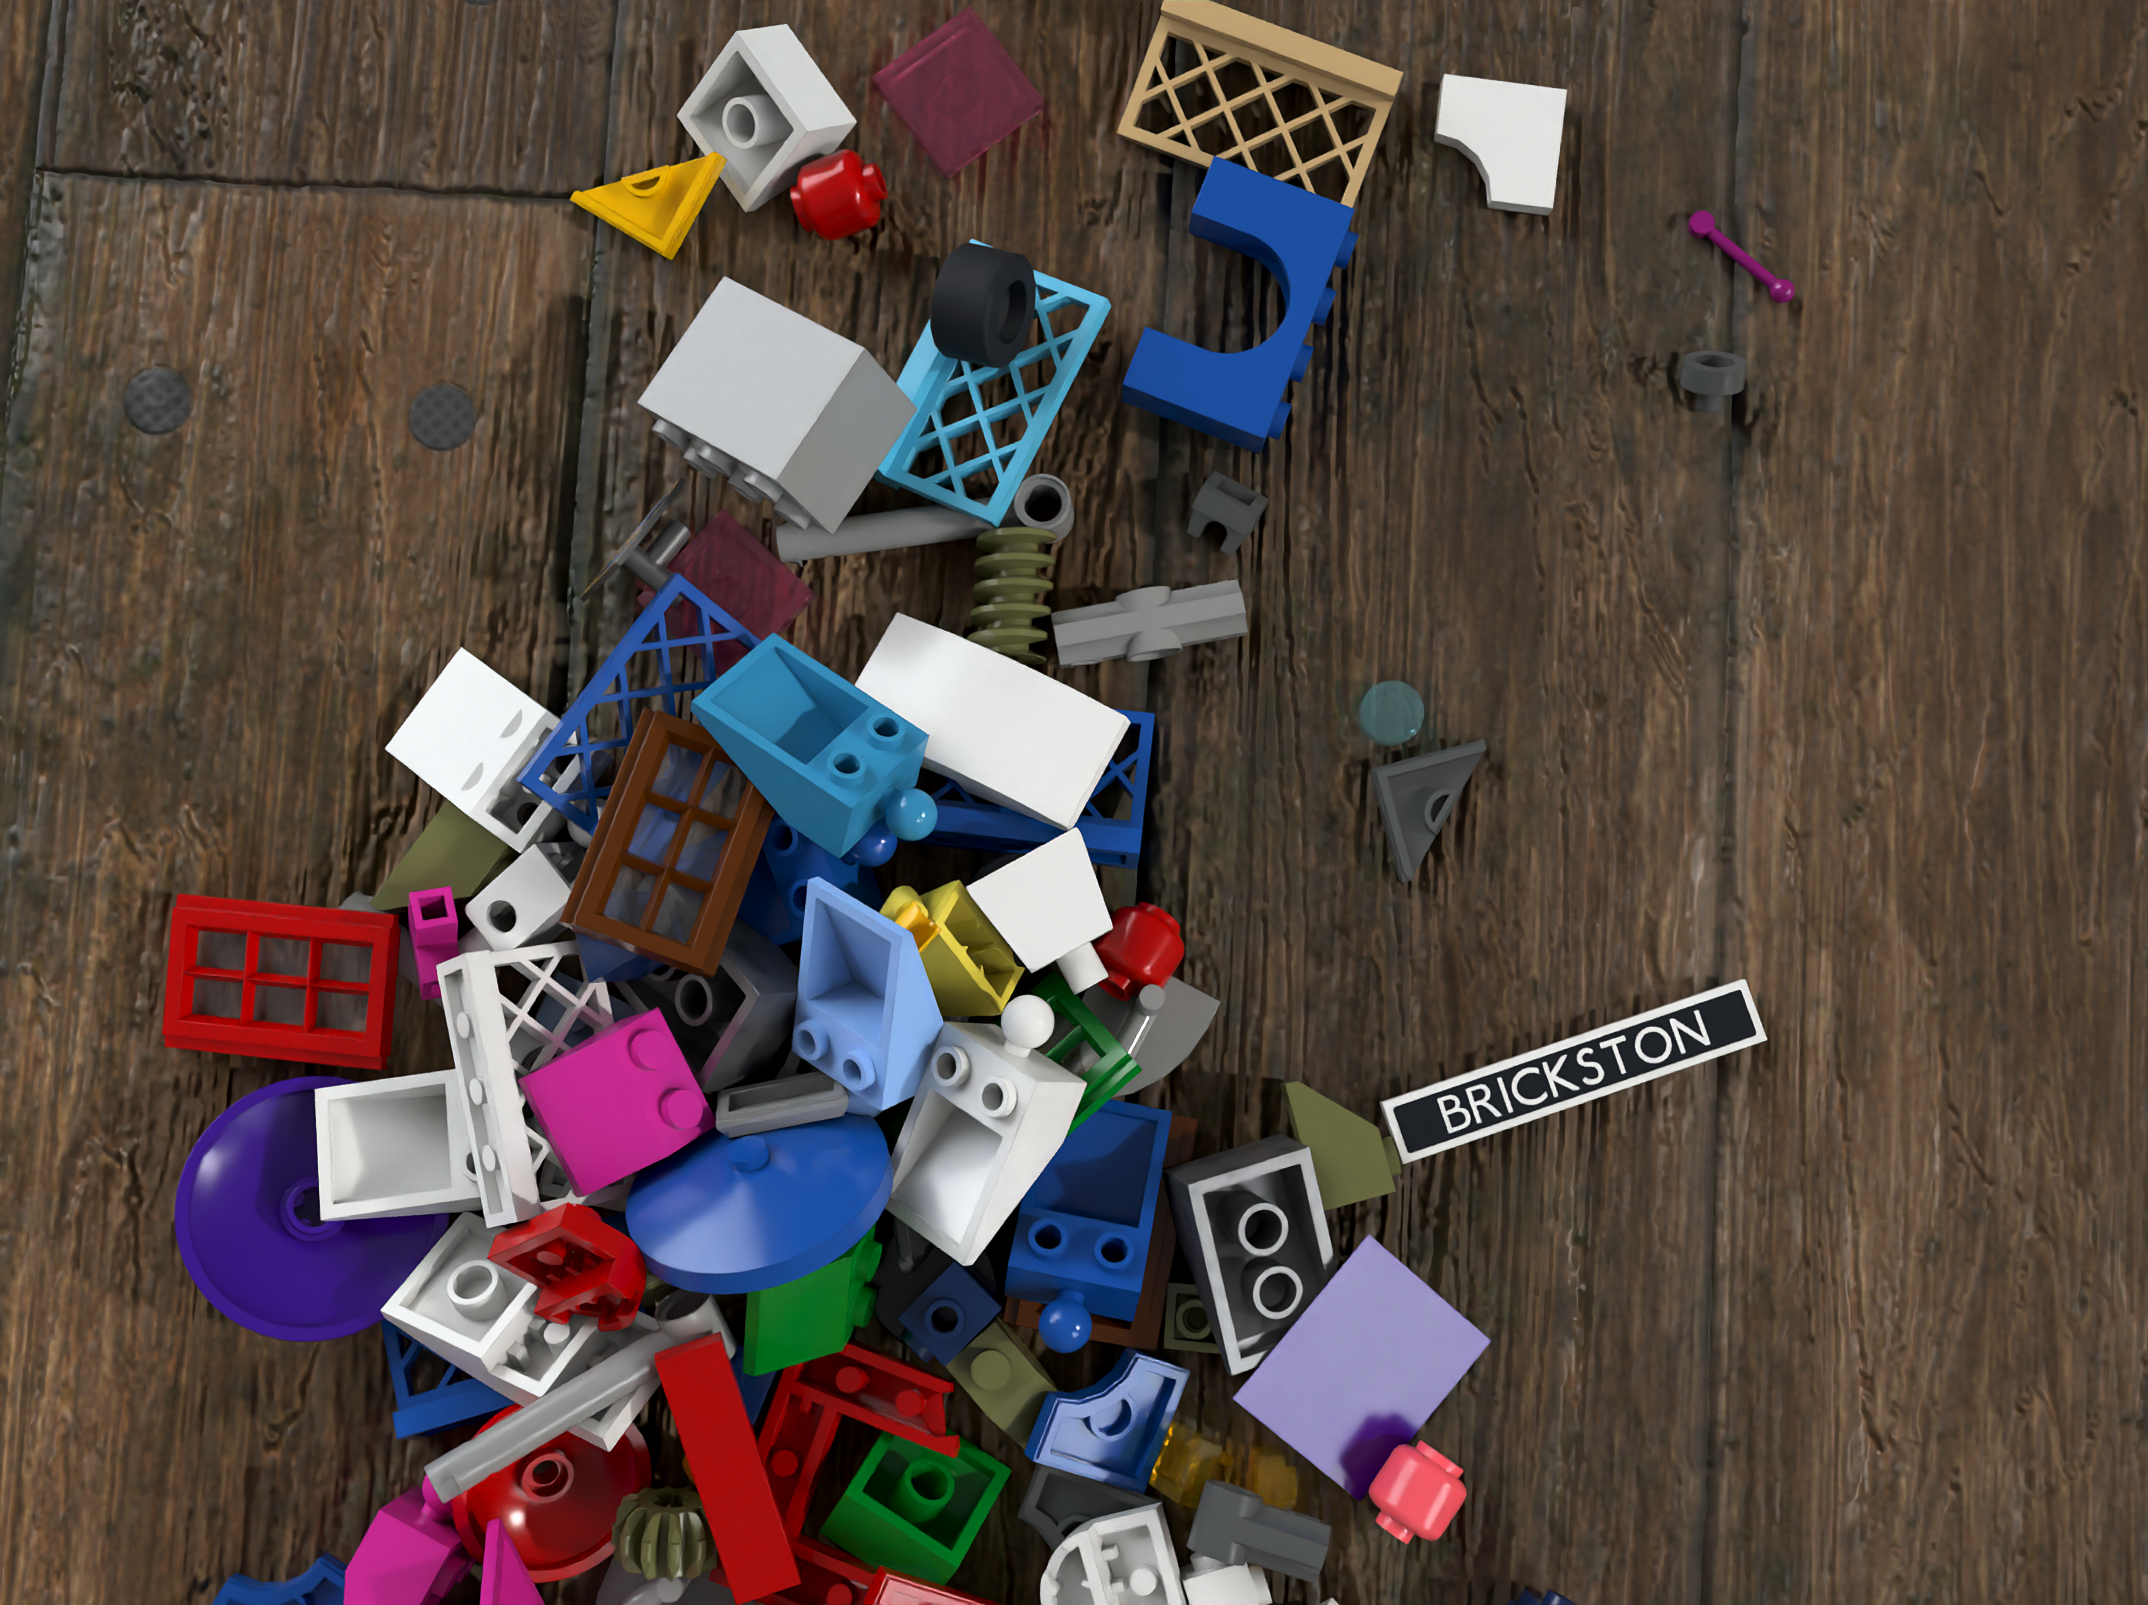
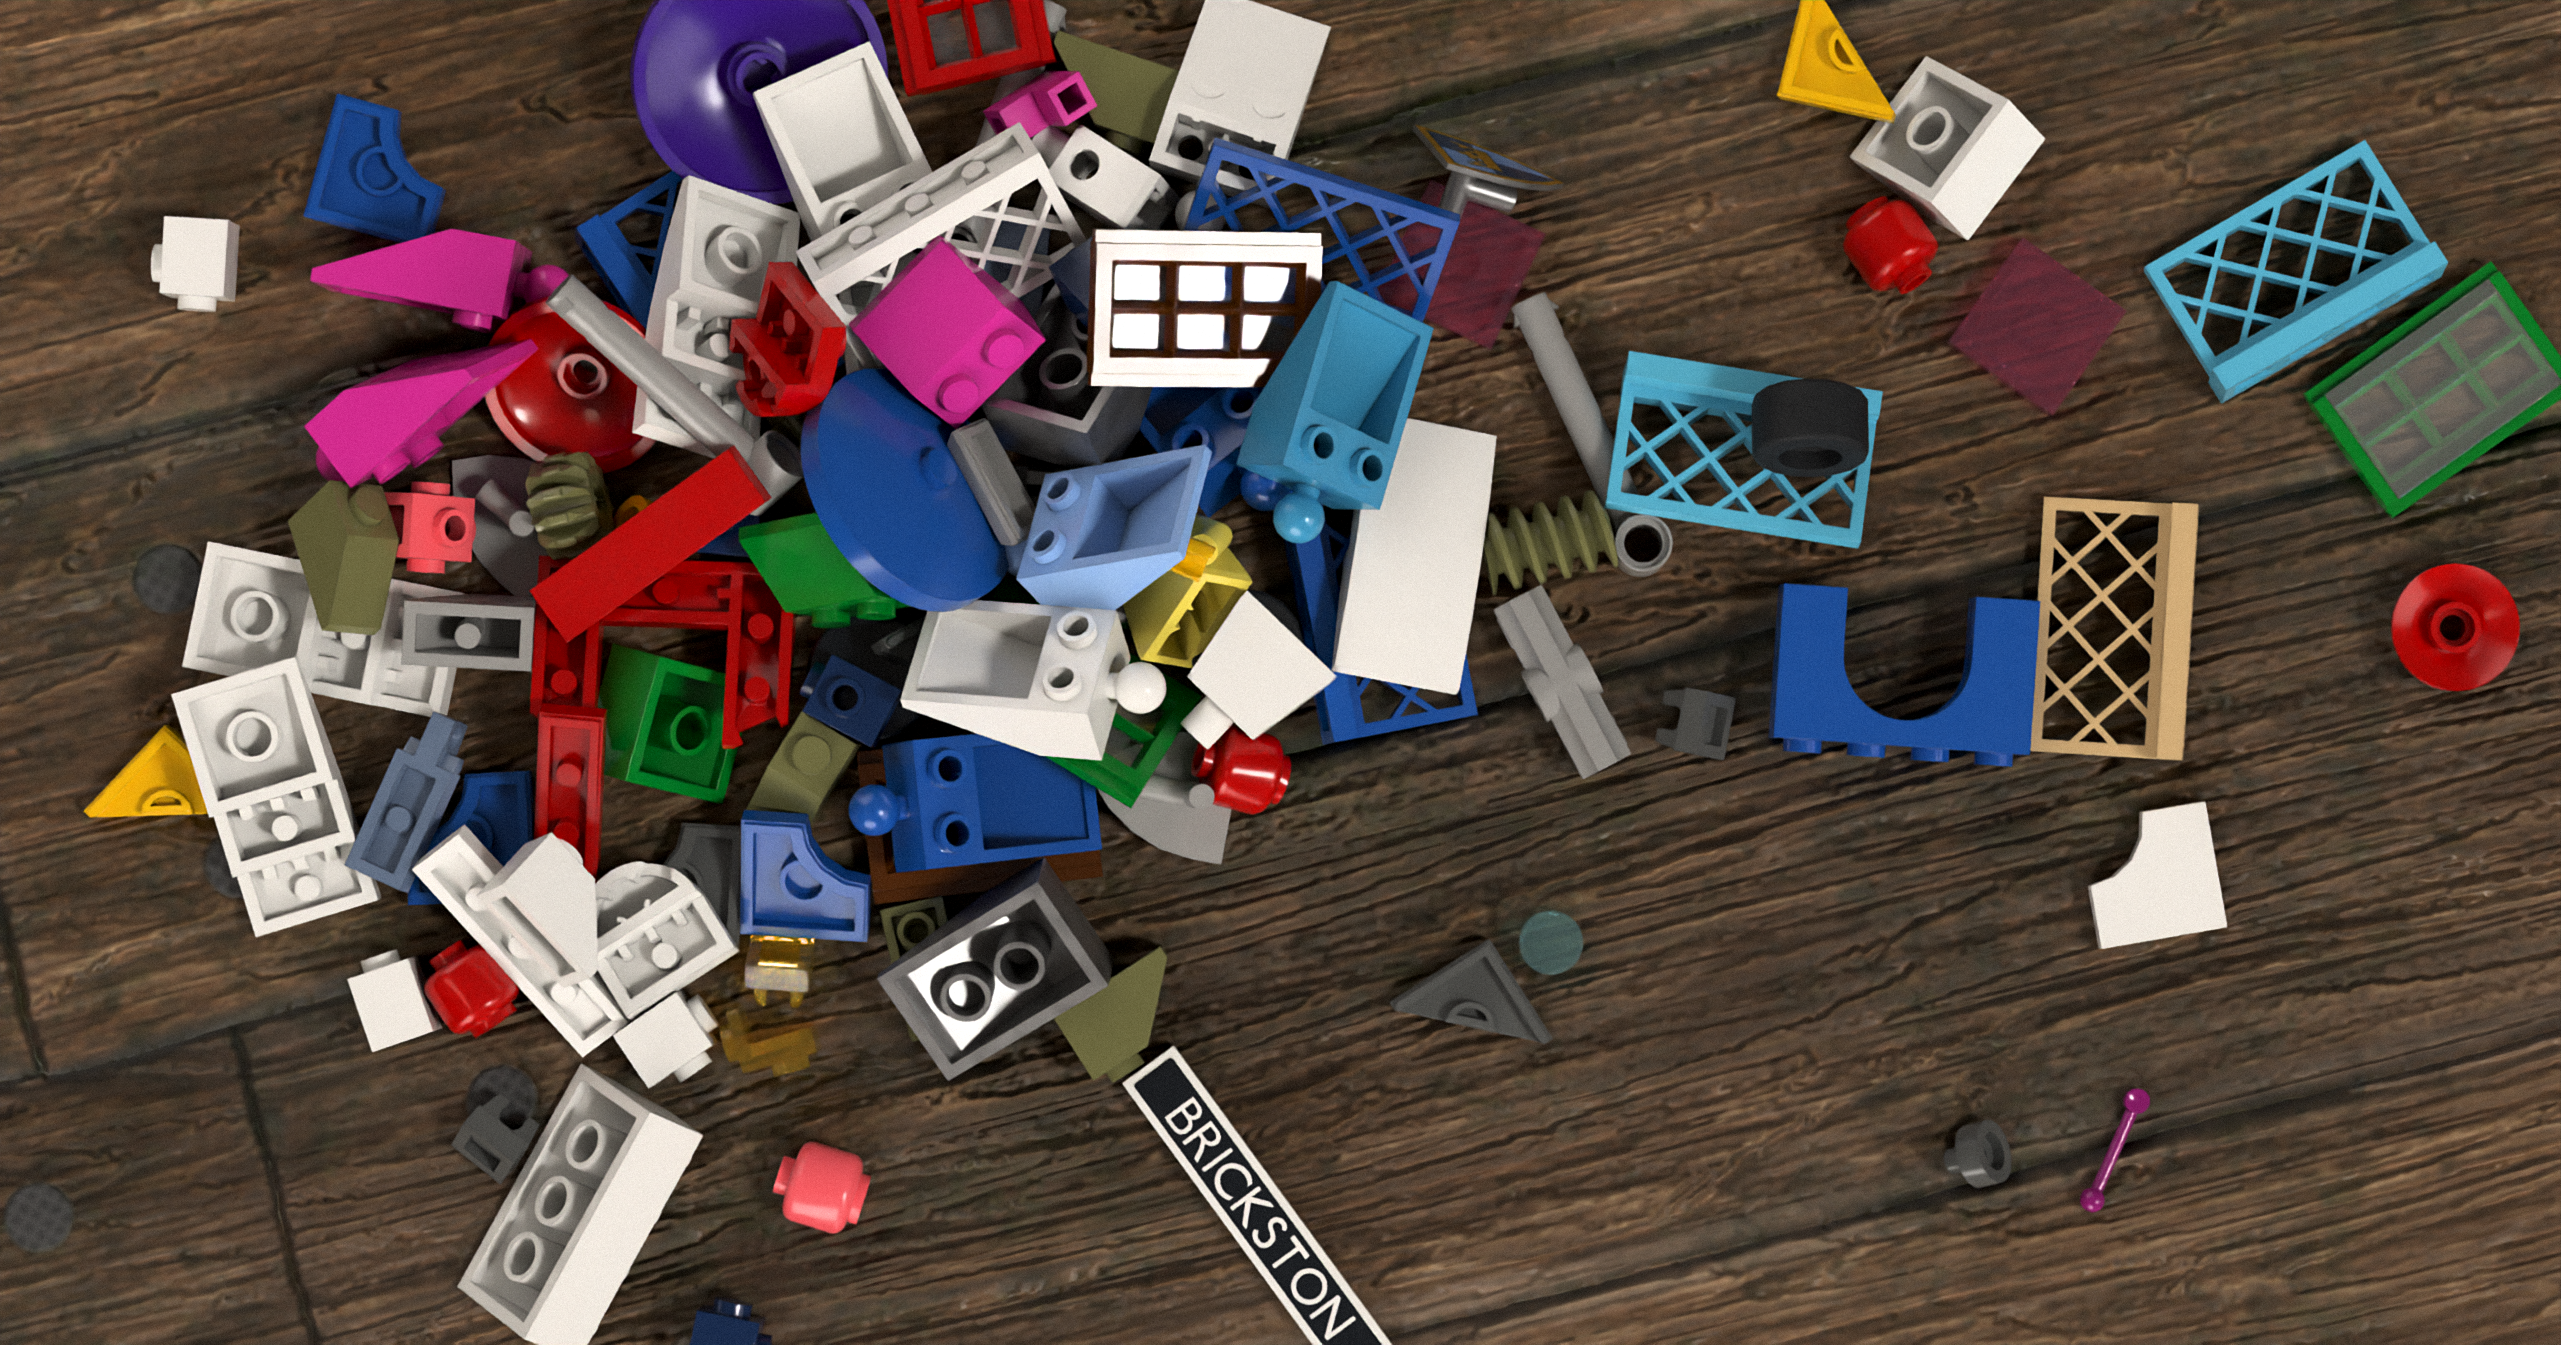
camera: 70 degrees right, 5 degrees up
(777, 406) = (1648, 261): container -> none
(1240, 1527) = (743, 1033): dark grey piece -> none
(1362, 1367) = (921, 1101): sticker -> none

